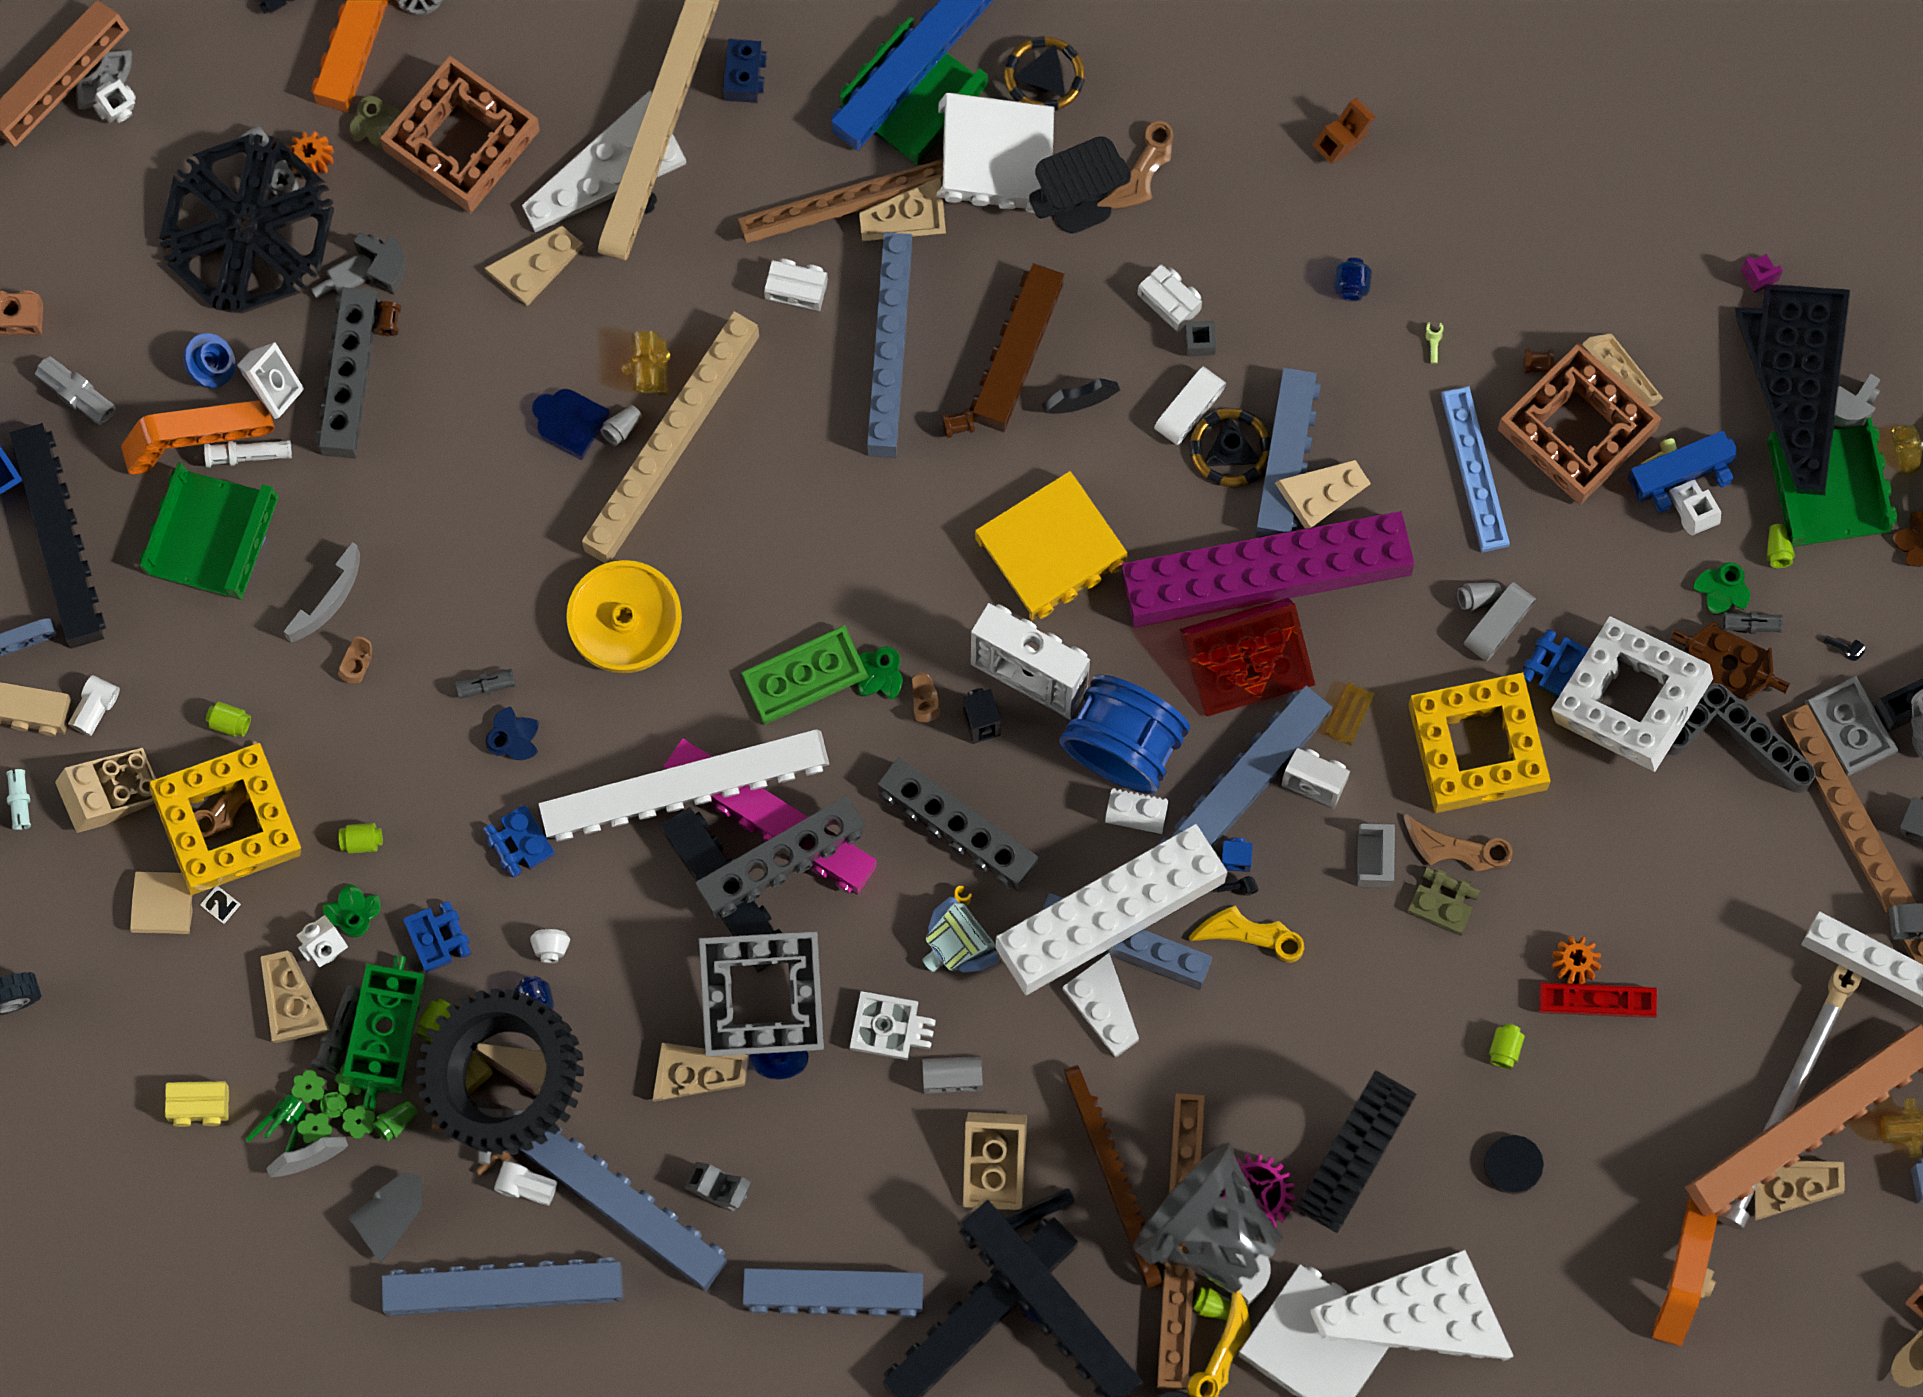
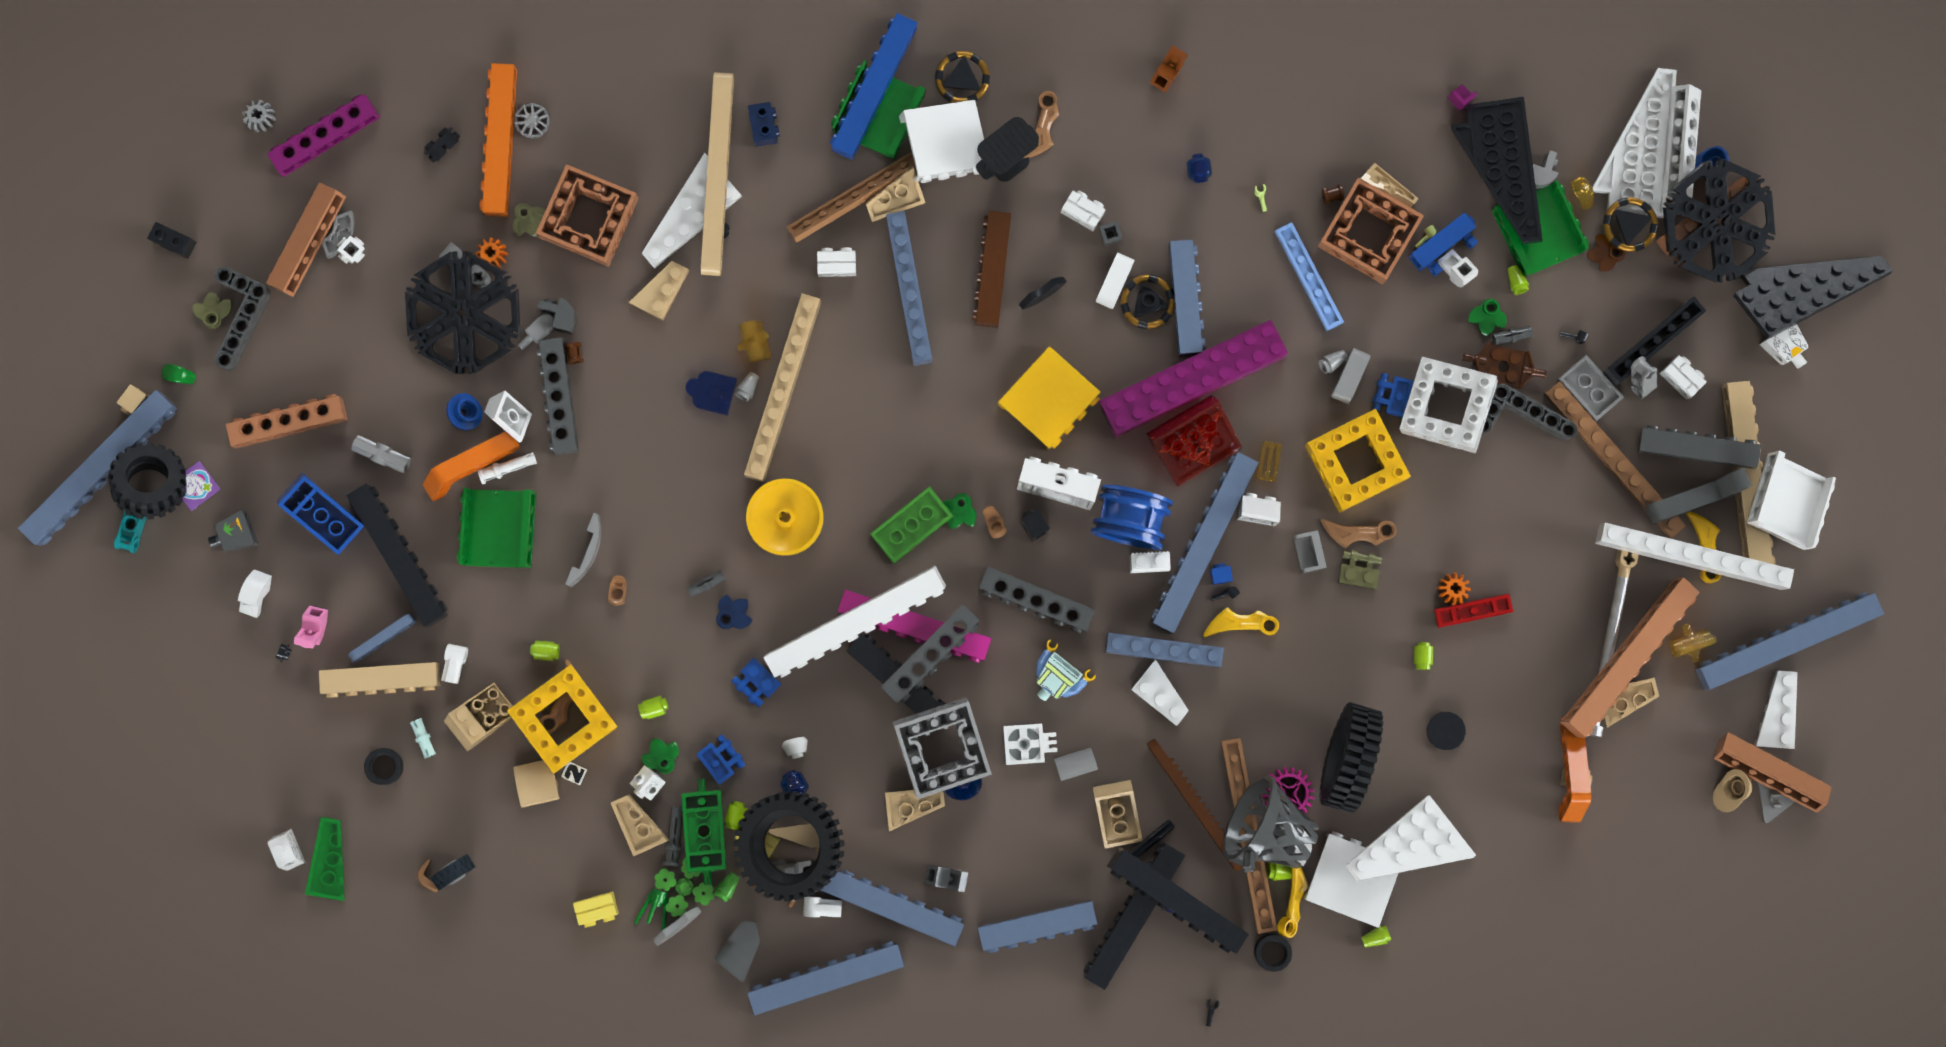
camera: 20 degrees left, 10 degrees up
(958, 422) = (967, 330): reddish brown bush -> none
(1110, 909) = (1152, 636): white brick -> none
(1322, 491) = (1216, 318): tan wing -> none

